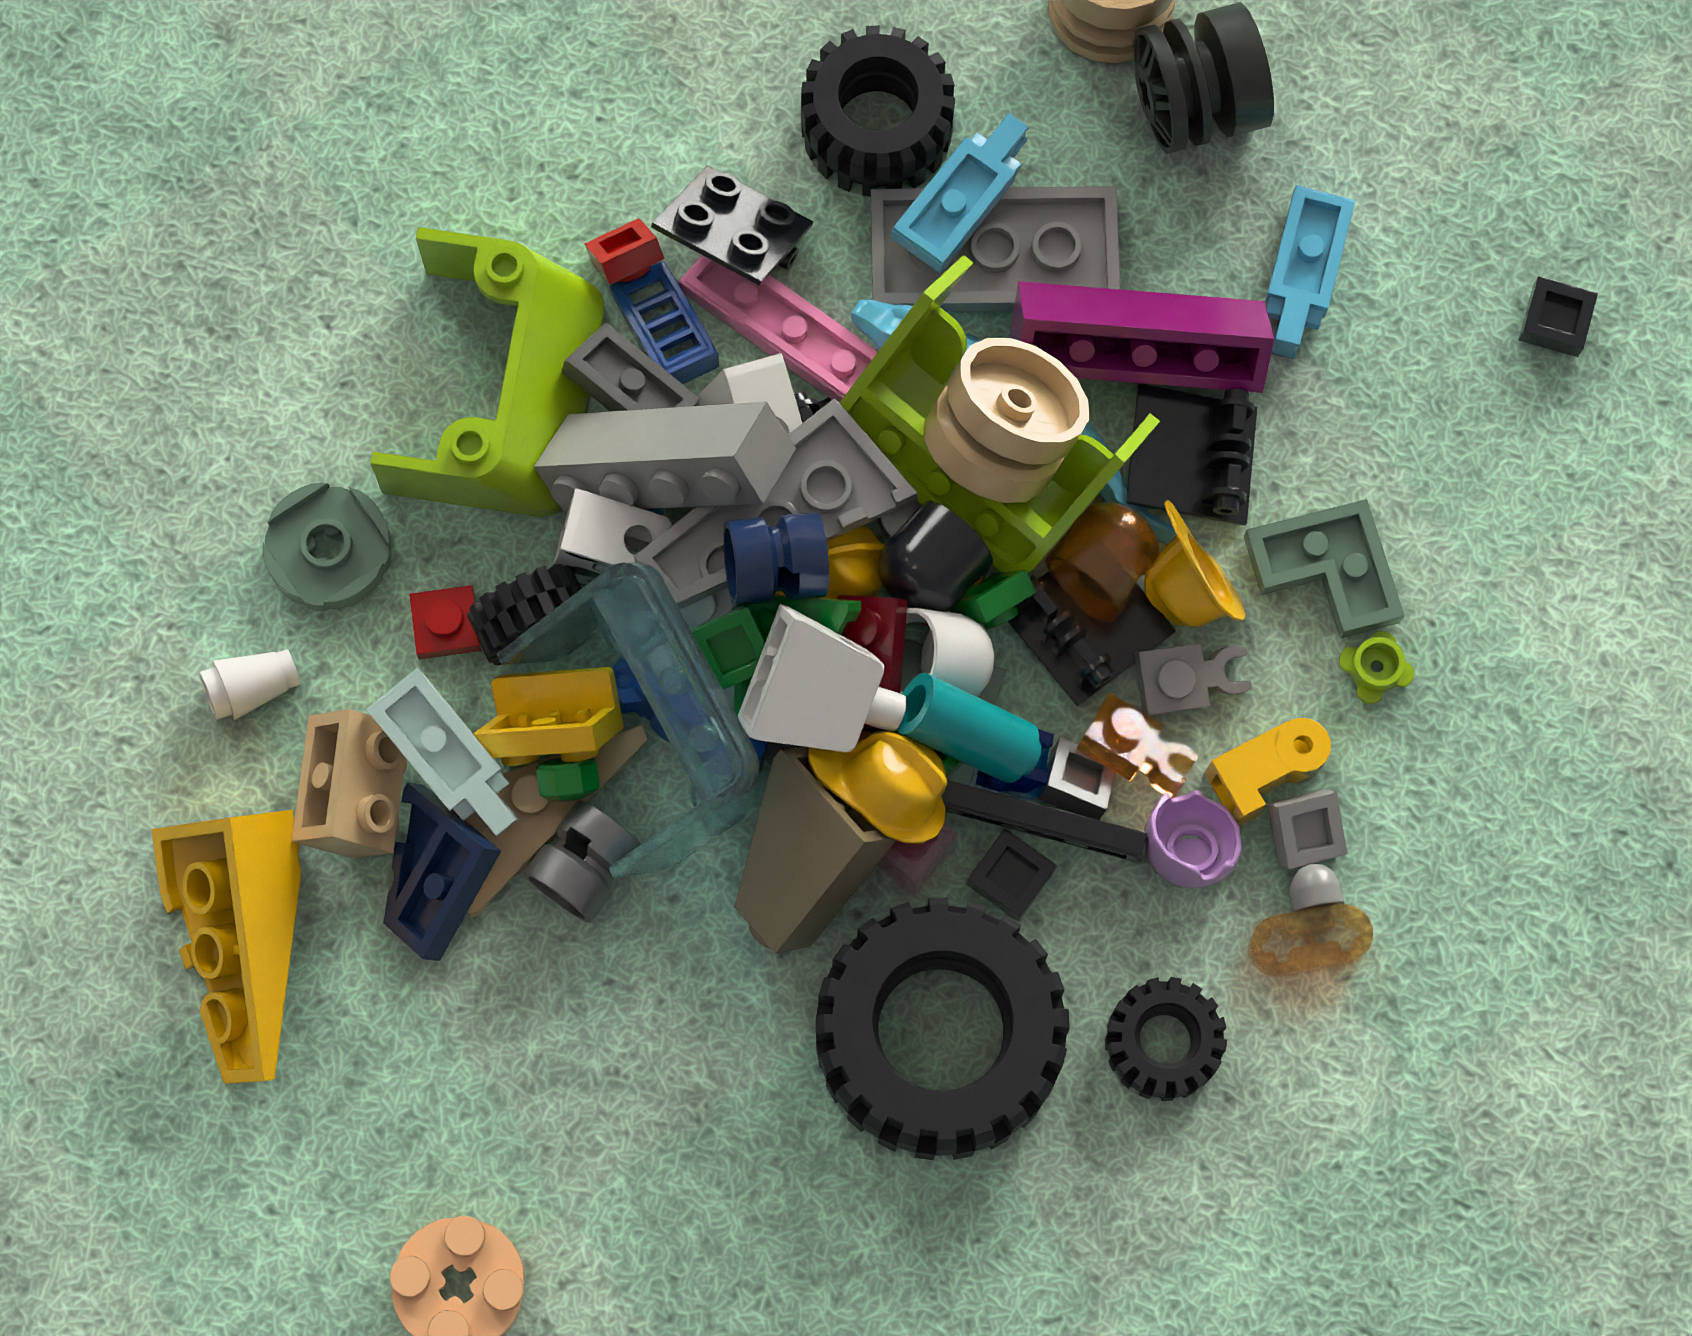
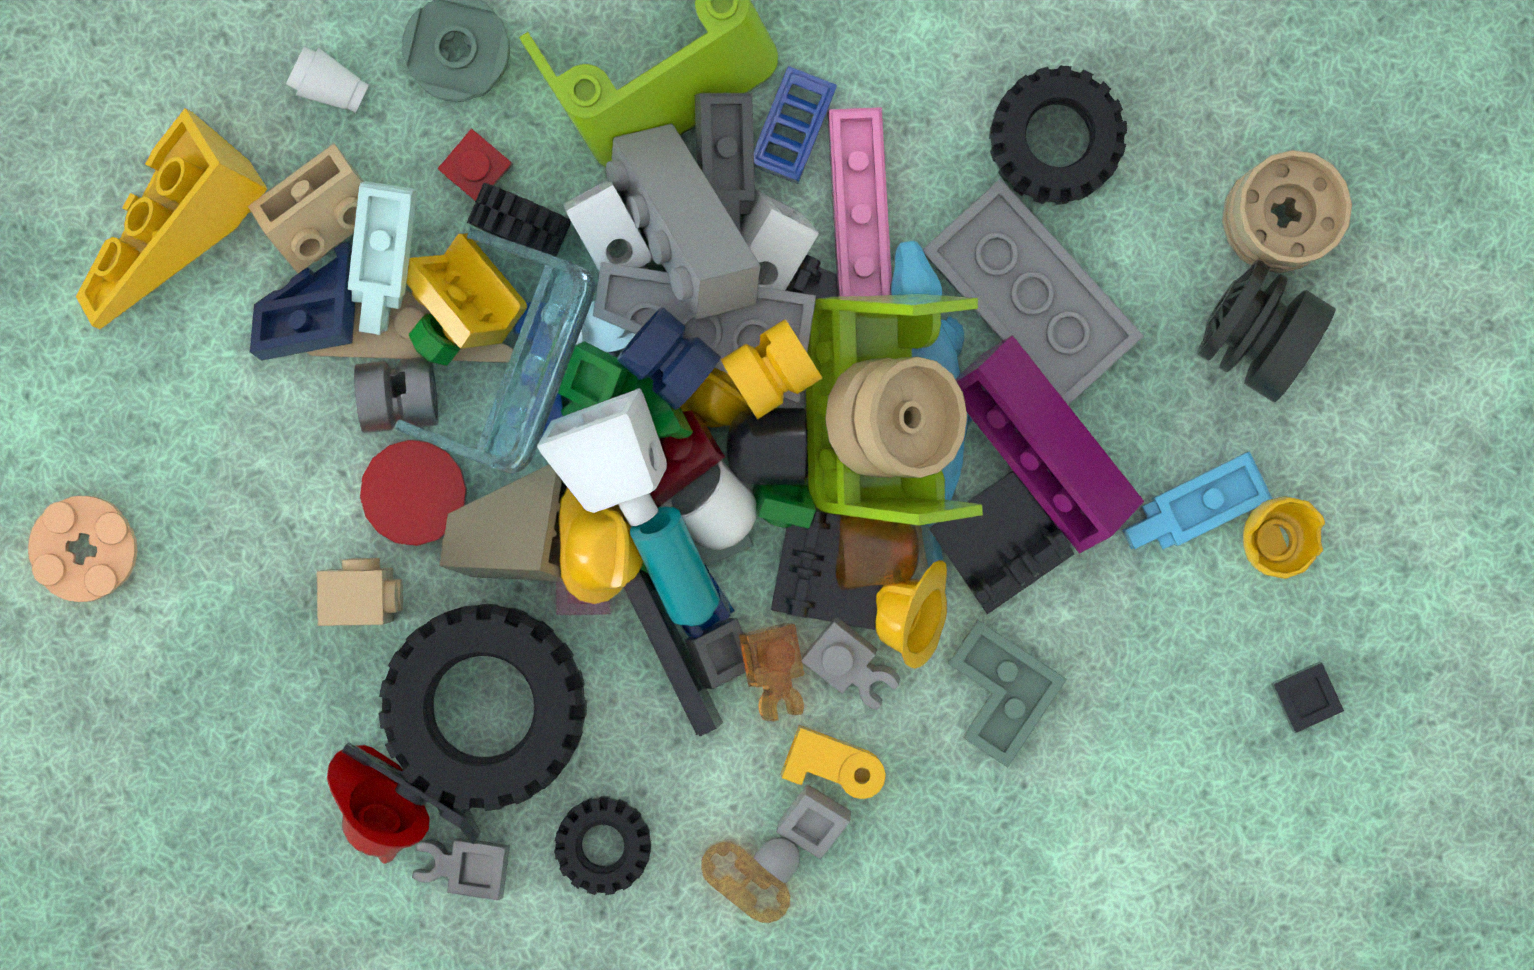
camera: 50 degrees right, 15 degrees up
(625, 252) = (817, 56): red plate -> none
(684, 931) = (412, 491): none -> red tile
(734, 225) = (891, 115): black hinge -> none
(734, 1049) = (358, 594): none -> tan brick
(865, 487) = (771, 369): none -> yellow wheel
(949, 1213) = (373, 813): none -> red piece
(961, 194) = (1042, 245): medium azure hinge -> none
(969, 1162) = (415, 793): none -> black piece
(1011, 875) = (623, 663): black plate -> none
(1082, 1178) = (471, 869): none -> plate
(1192, 861) = (732, 766): lavender hair -> none
(1380, 649) = (956, 761): lime plate -> none
(1396, 197) = (1265, 543): none -> yellow hair

